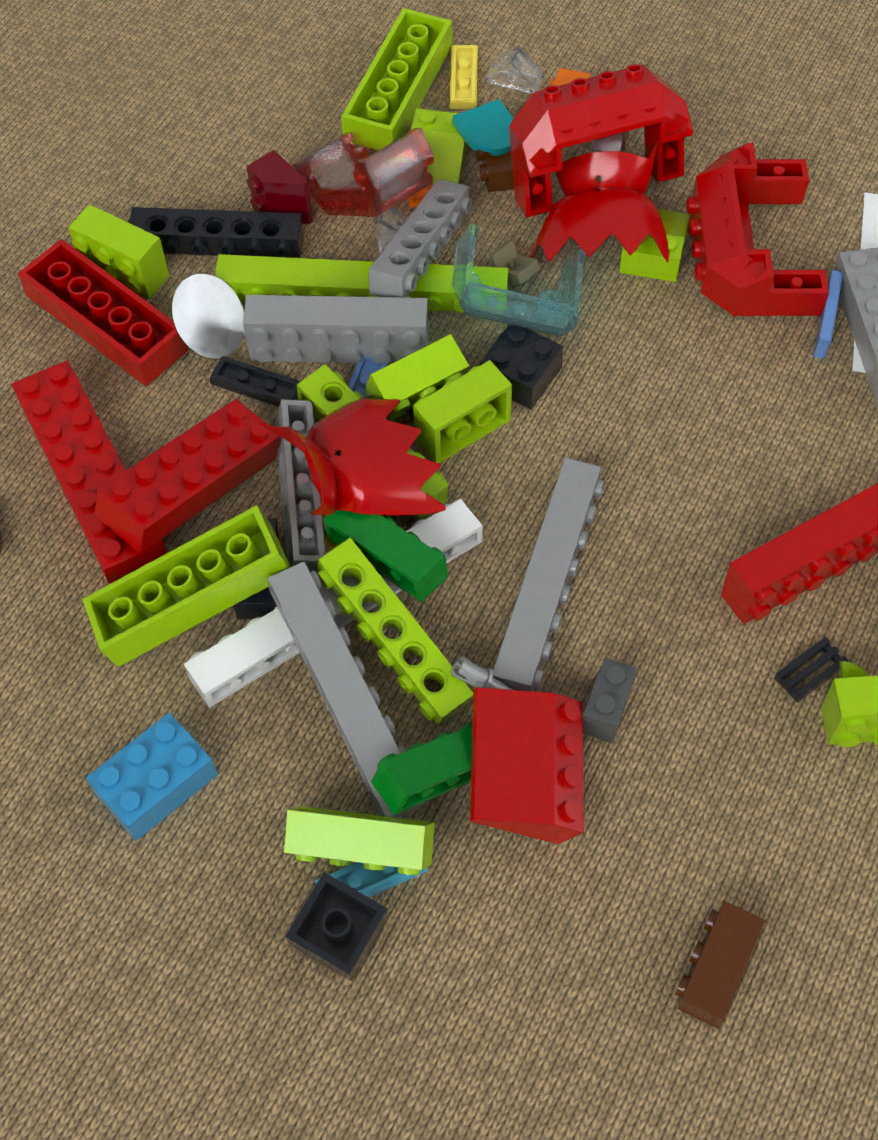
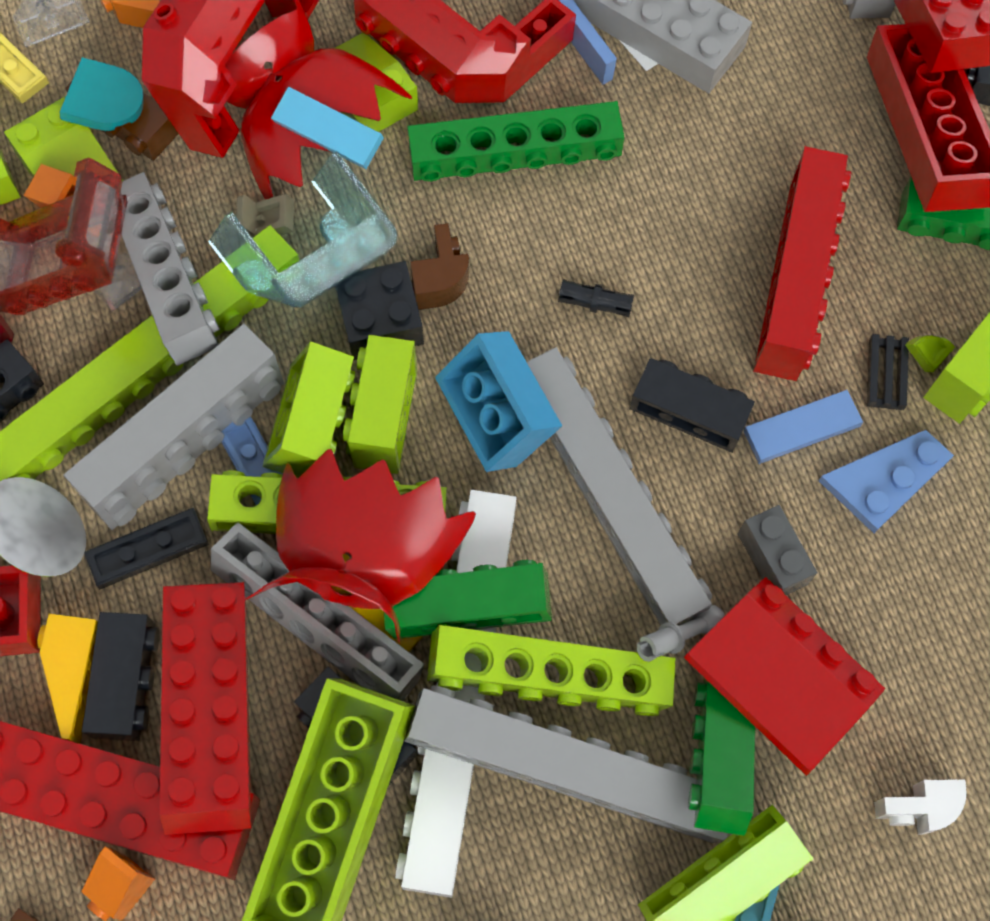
camera: 50 degrees left, 10 degrees up
(51, 526) = (115, 885): none -> orange slope
(150, 404) = (67, 659): none -> yellow slope
(165, 425) = (120, 676): none -> black brick
(530, 465) = (497, 401): none -> dark azure brick
(540, 933) = (933, 805): none -> white brick
(581, 379) = (441, 278): none -> reddish brown brick
(594, 235) = (327, 127): none -> medium azure tile
(654, 574) = (691, 404): none -> black brick
(664, 468) = (595, 298): none -> black pin
(714, 341) = (528, 128): none -> green brick
(715, 651) = (803, 426): none -> medium blue tile
(738, 730) = (887, 478): none -> medium blue wing

